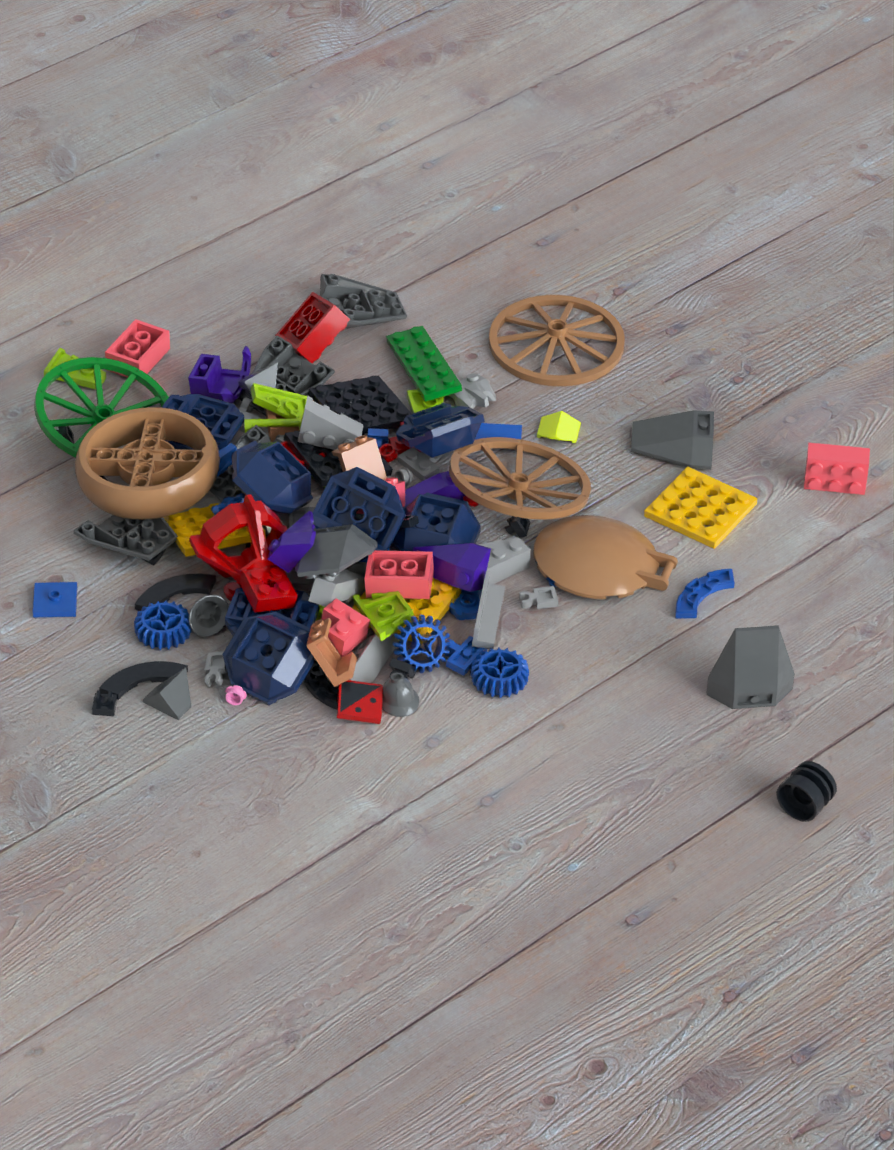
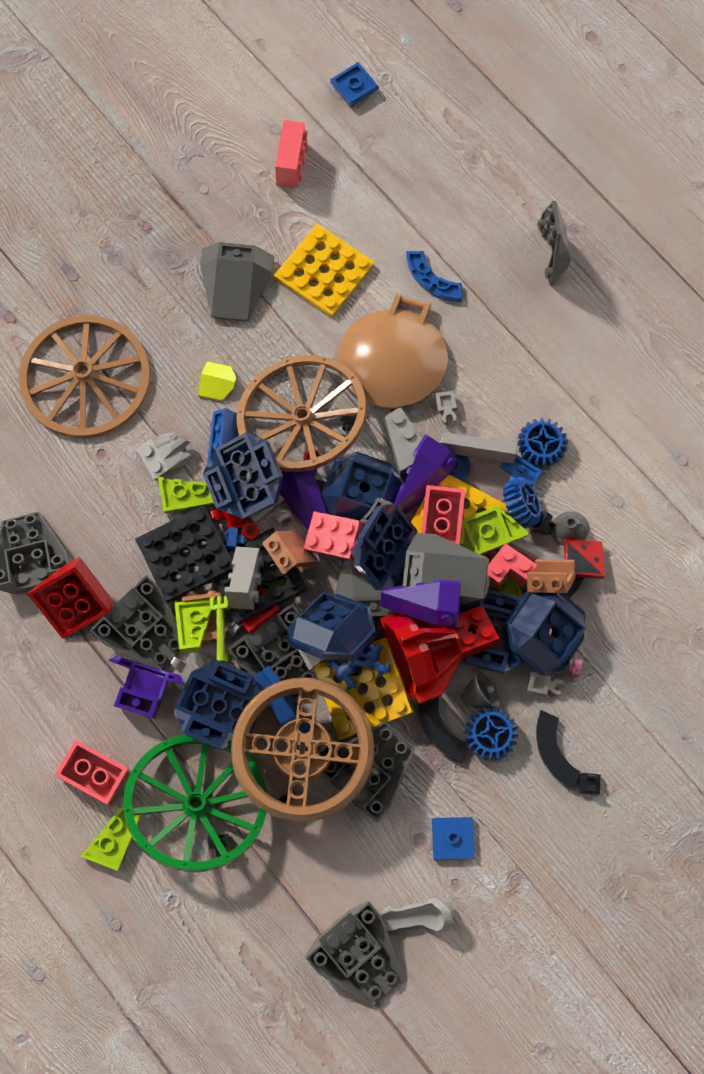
camera: 90 degrees left, 30 degrees up
(171, 695) = (579, 724): dark grey slope -> none
(265, 377) = (157, 648): slope -> none
(424, 363) = (123, 495): green plate -> none
(806, 791) = (678, 216): black wheel -> none

